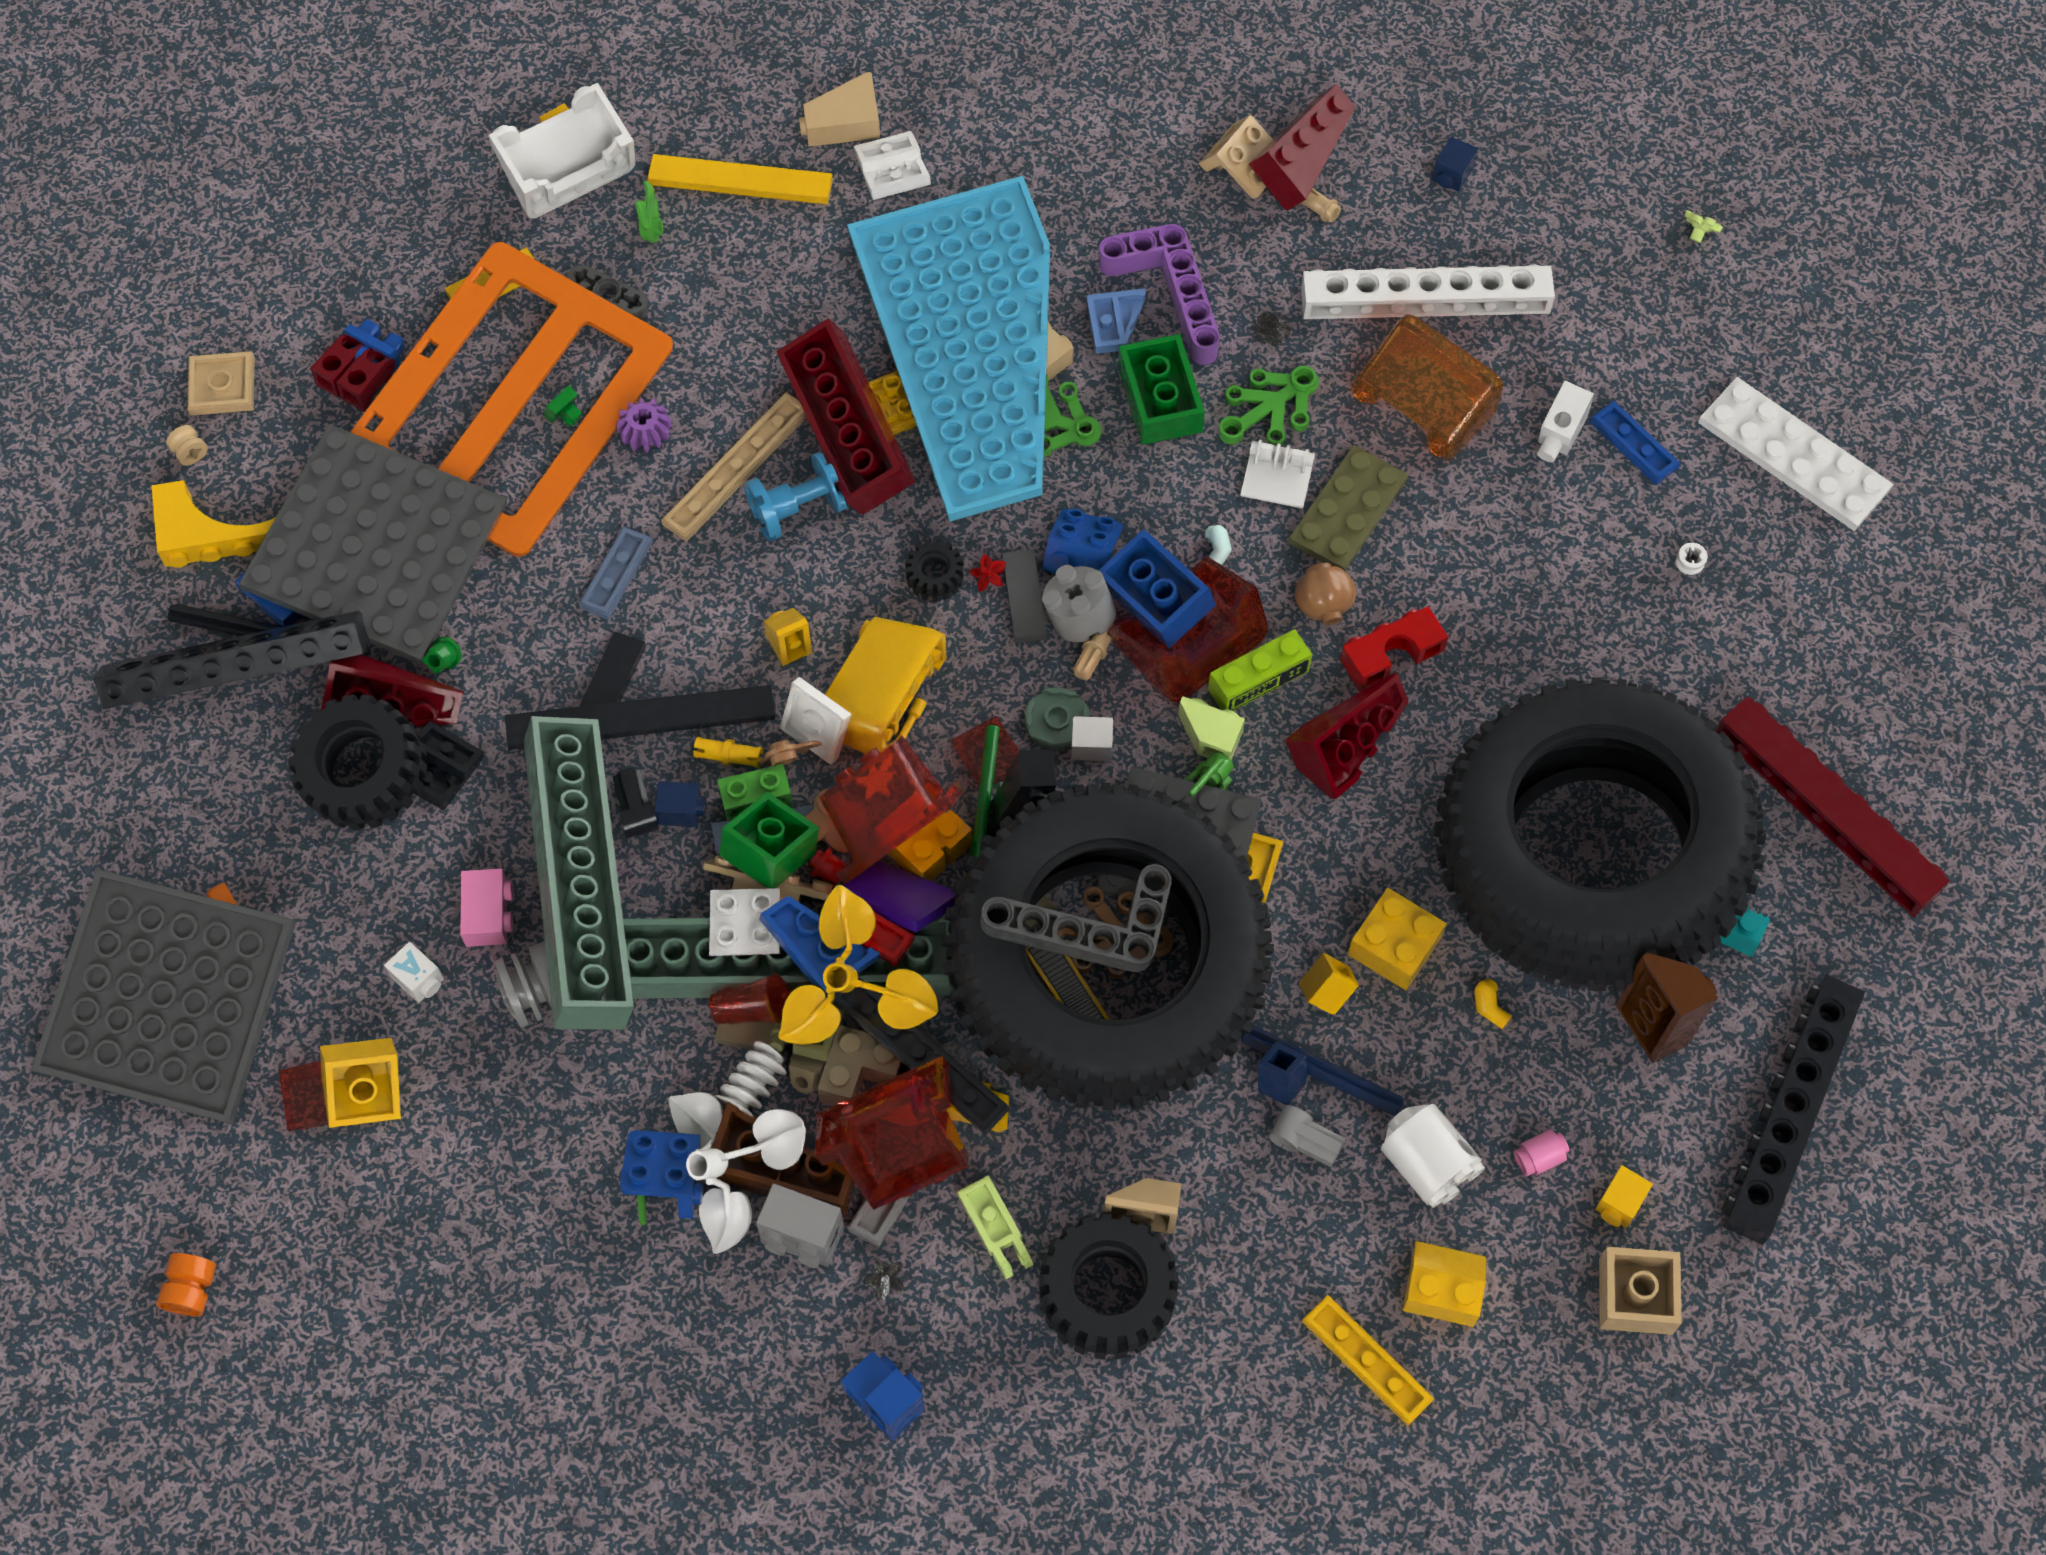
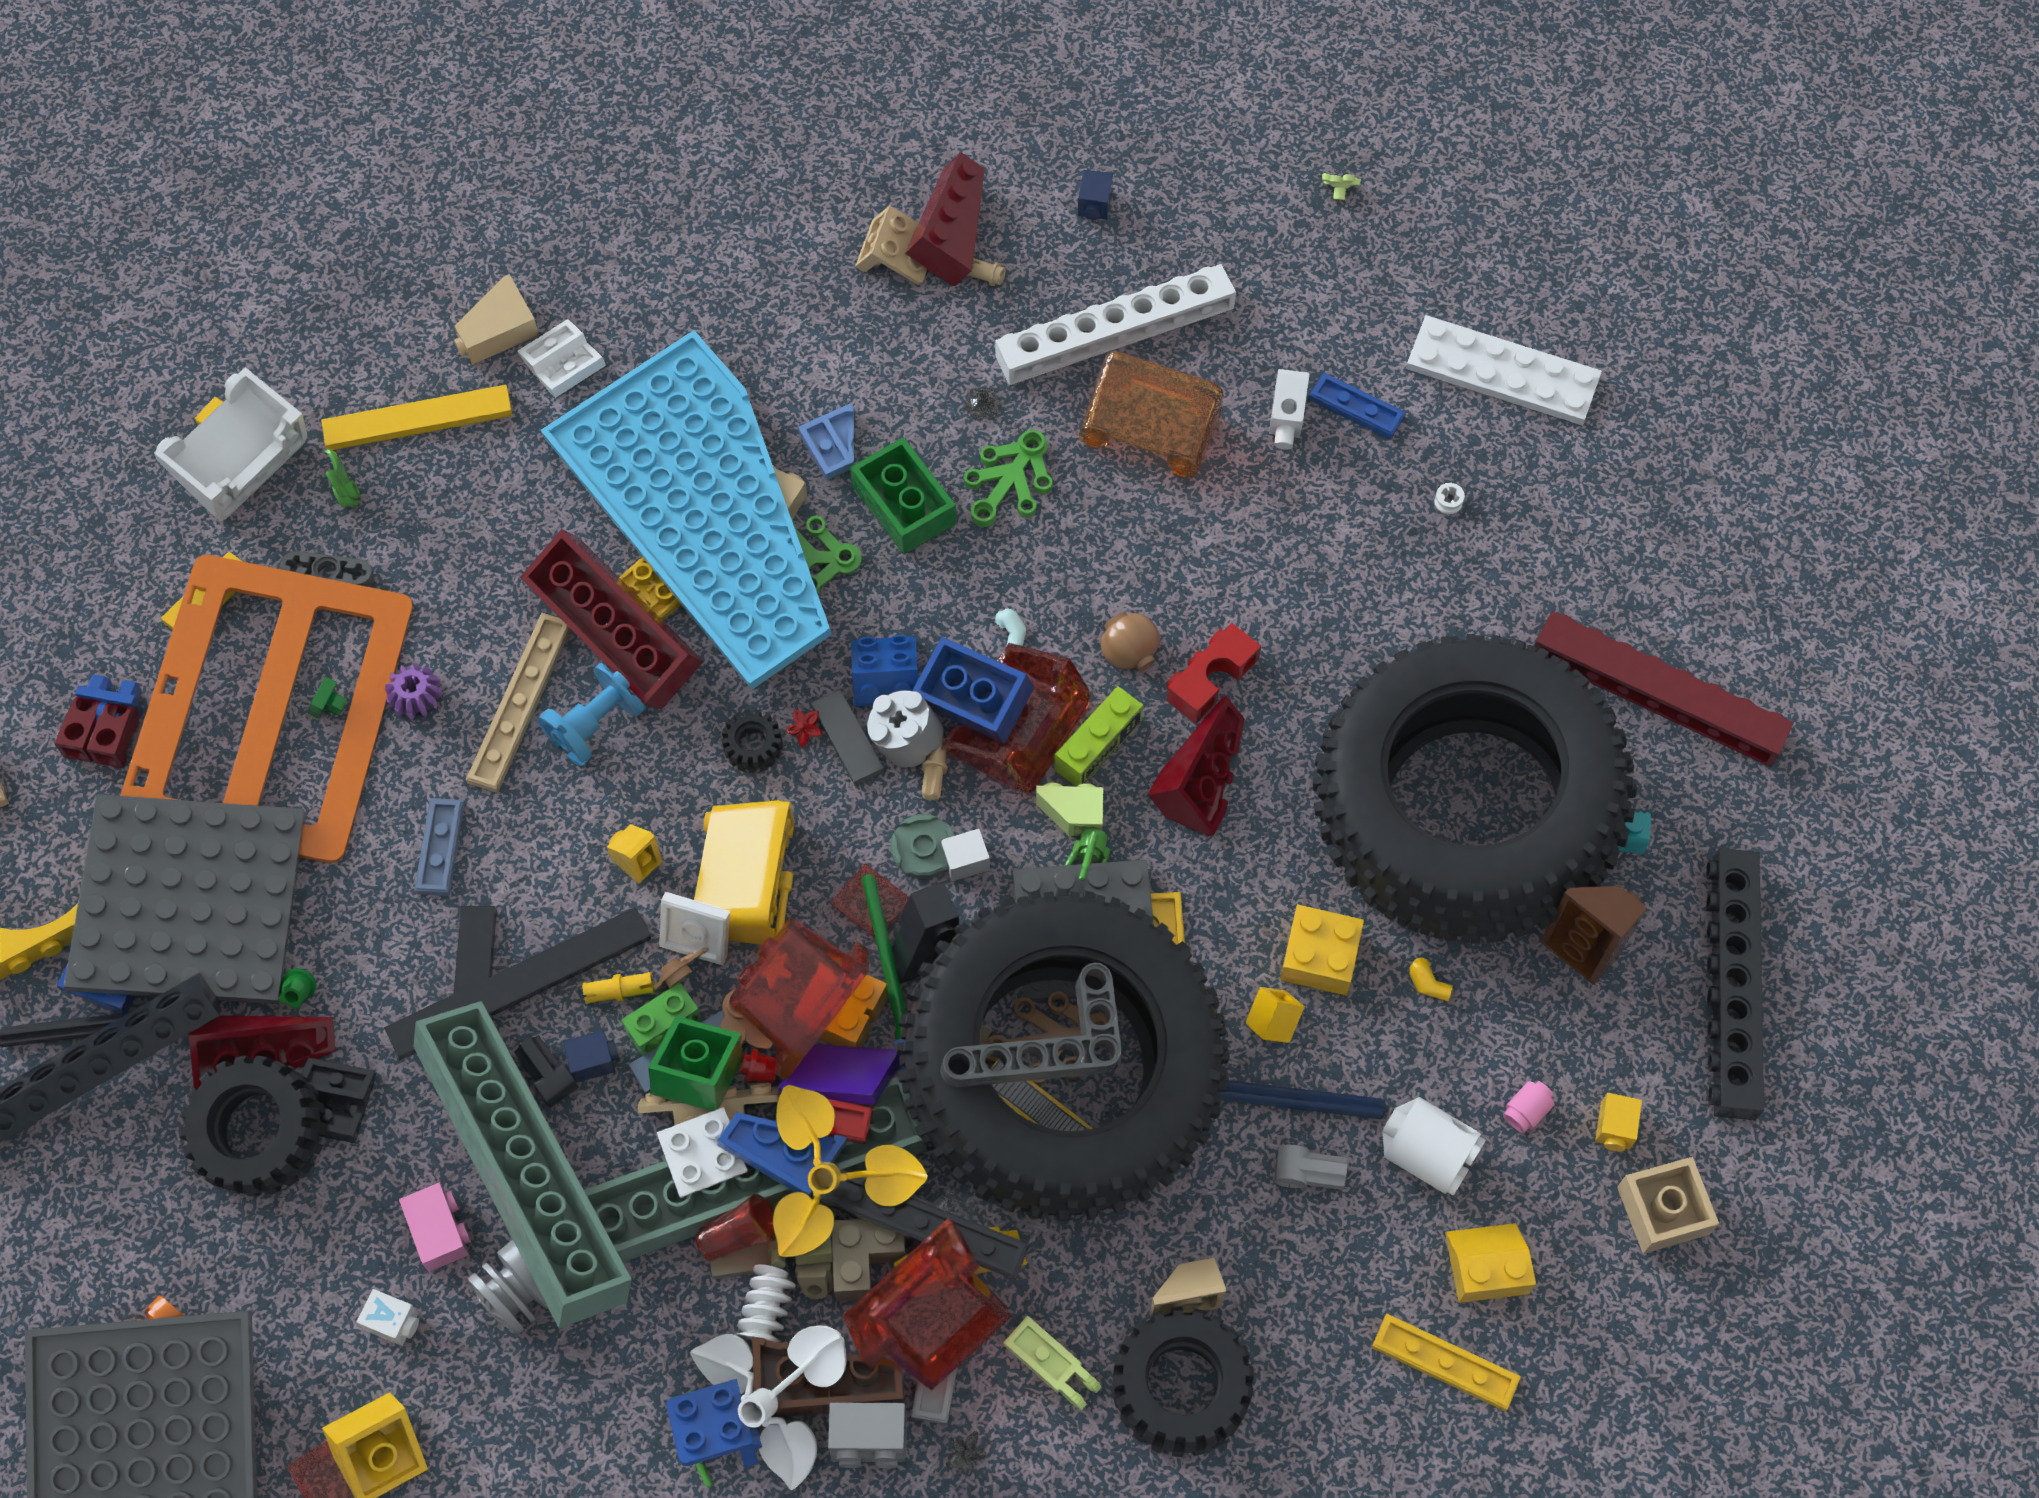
camera: 20 degrees left, 0 degrees up
(1160, 253) = (880, 386): medium lavender beam -> none
(1277, 474) = (1042, 541): white hinge -> none
(1282, 1073) = (1266, 1116): dark blue brick -> none
(1348, 508) = (1120, 553): olive plate -> none

